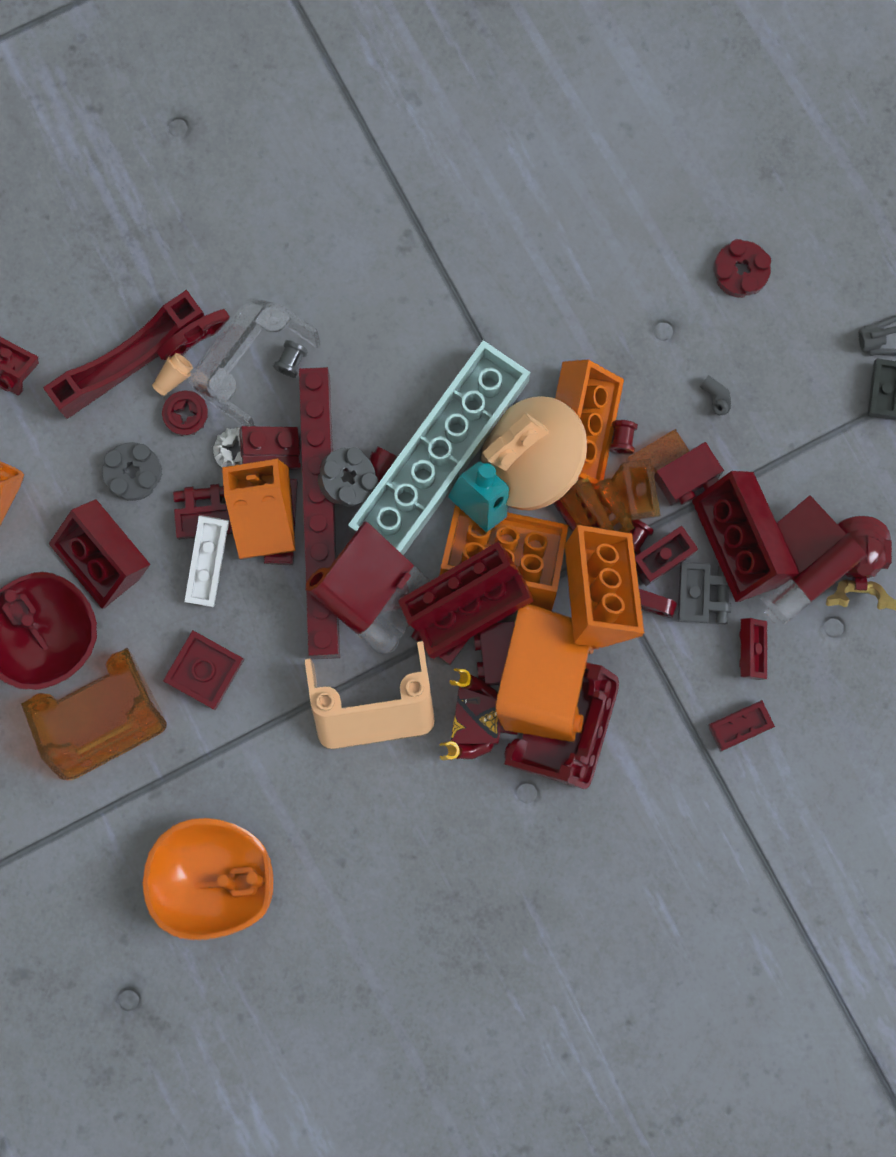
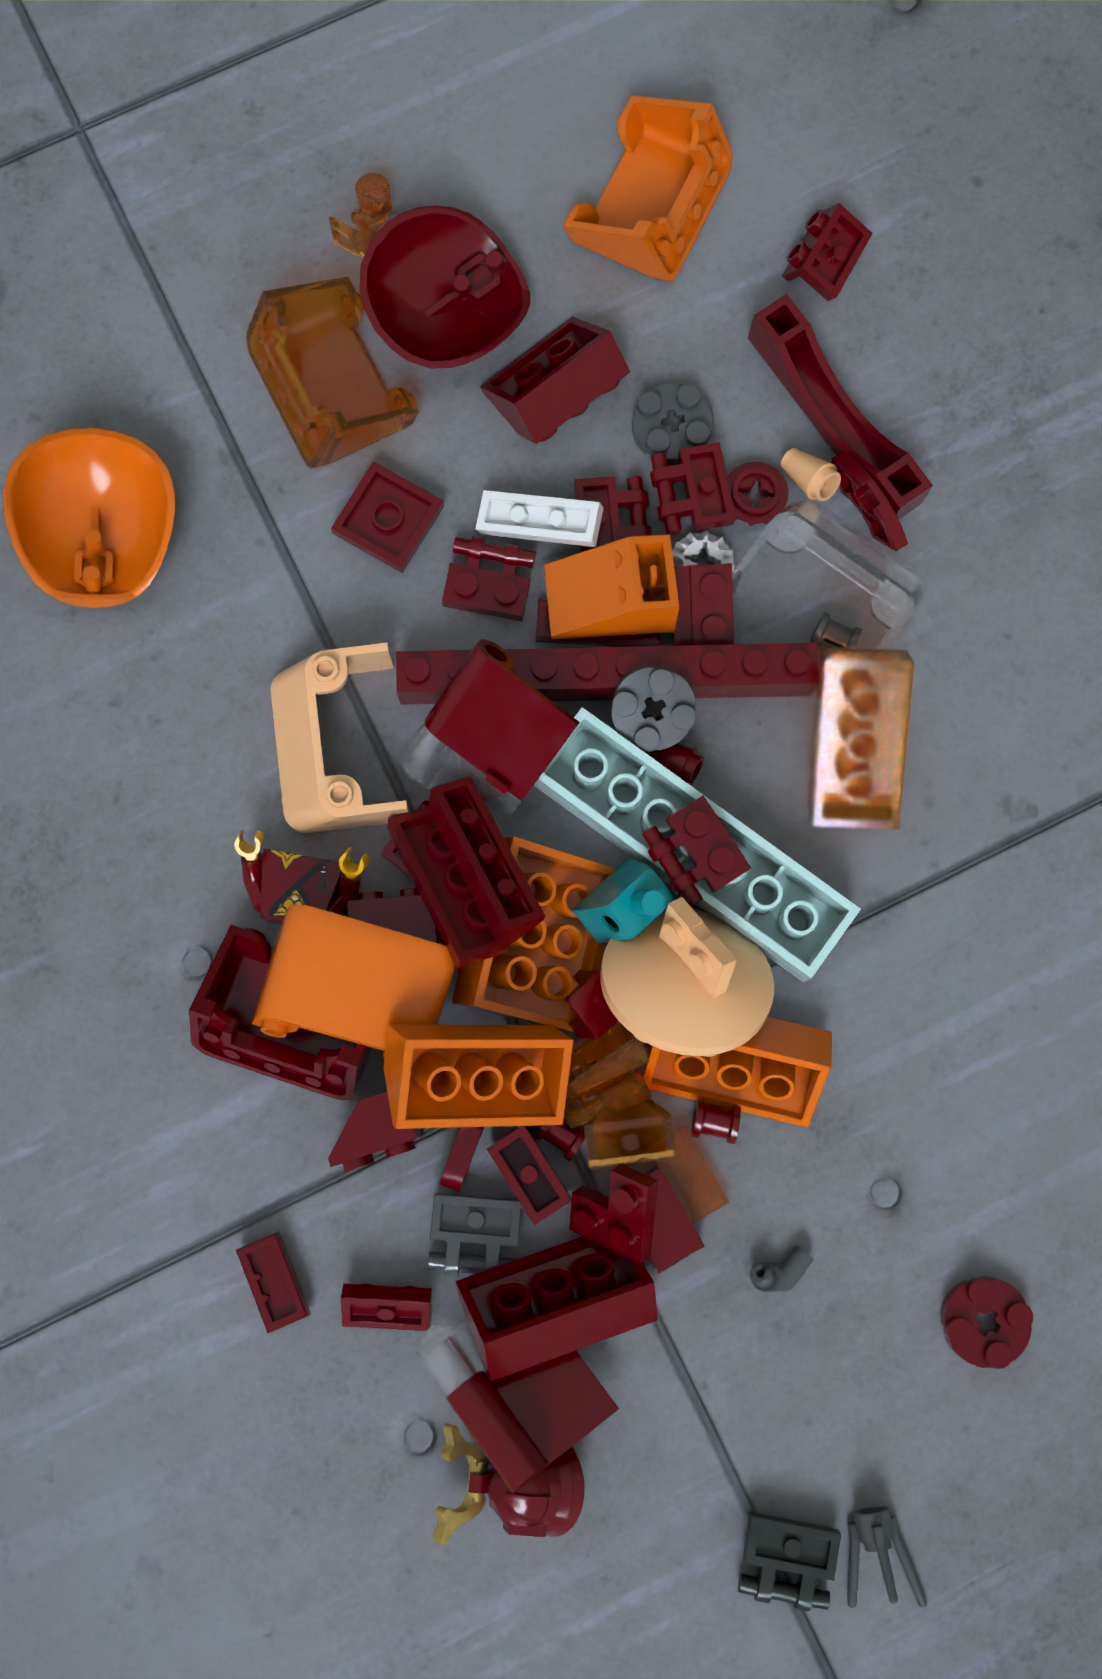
camera: 90 degrees right, 0 degrees up
(182, 446) = (705, 487): none -> dark red plate
(257, 597) = (487, 590): none -> dark red plate
(366, 339) = (860, 737): none -> clear orange brick
(442, 440) = (707, 845): none -> dark red plate
(552, 517) = (590, 1007): none -> dark red panel
(641, 659) = (369, 1132): none -> dark red slope
(693, 493) = (621, 1221): none -> dark red plate

